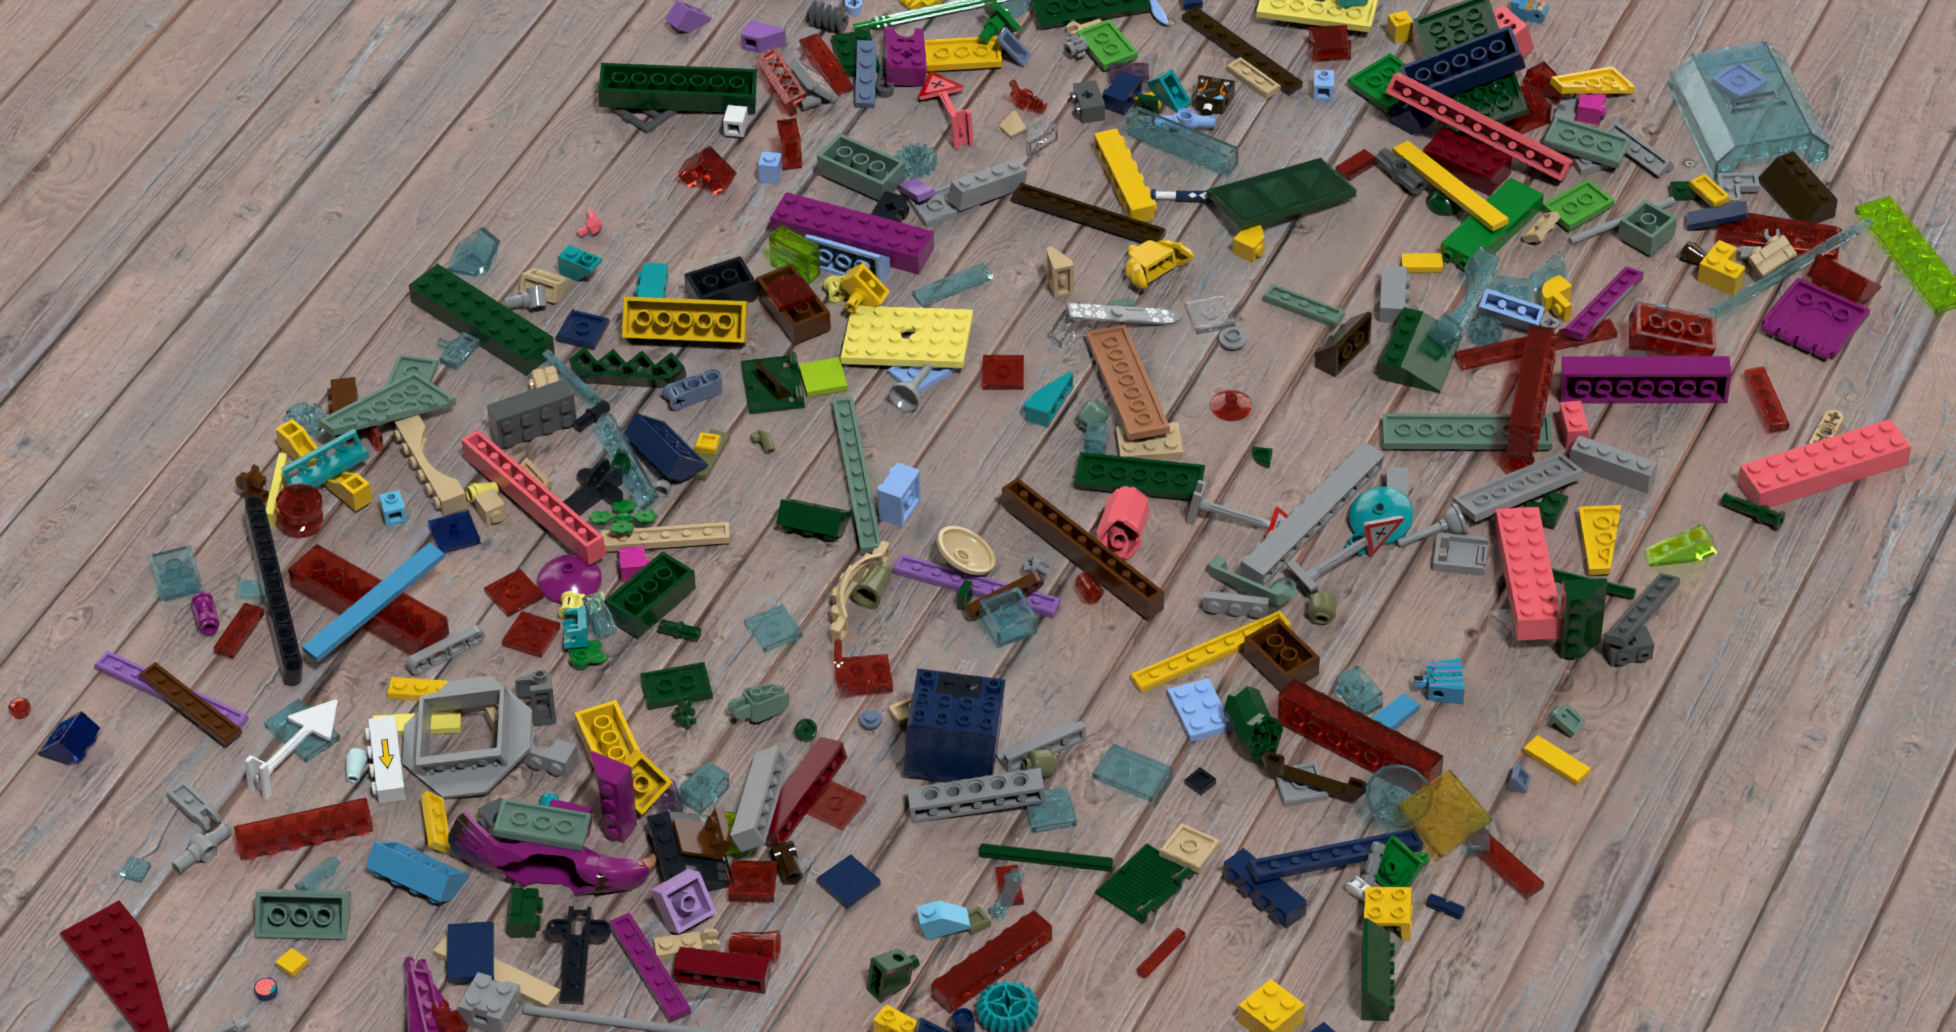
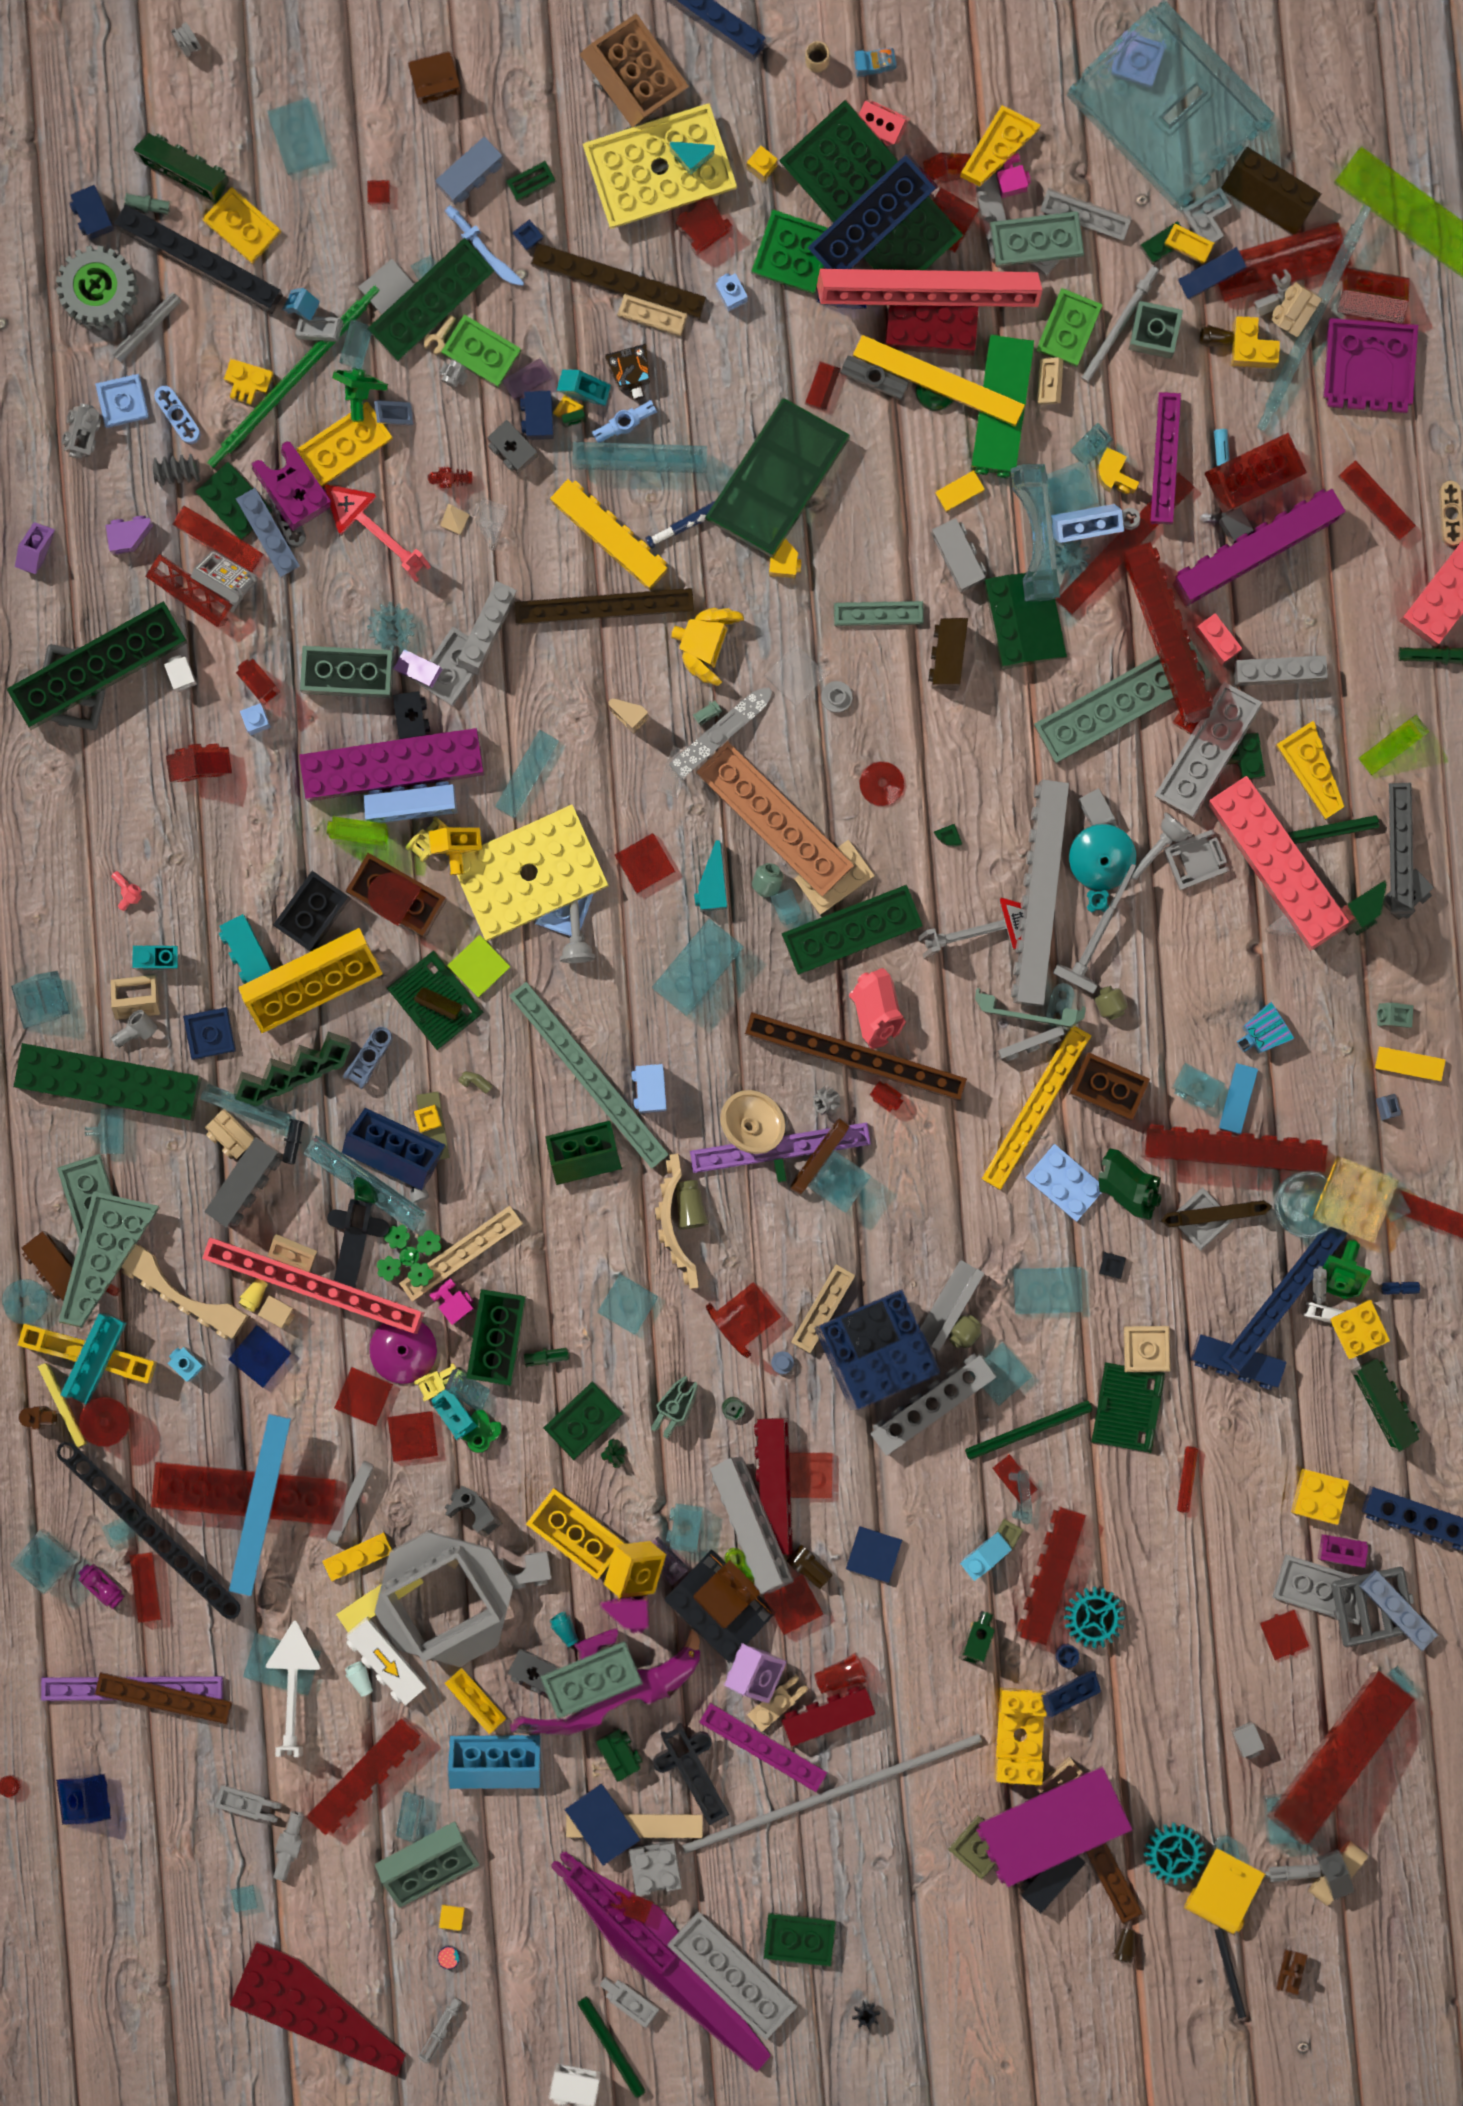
camera: 30 degrees left, 40 degrees up
(995, 444) = (697, 968): none -> clear light blue brick

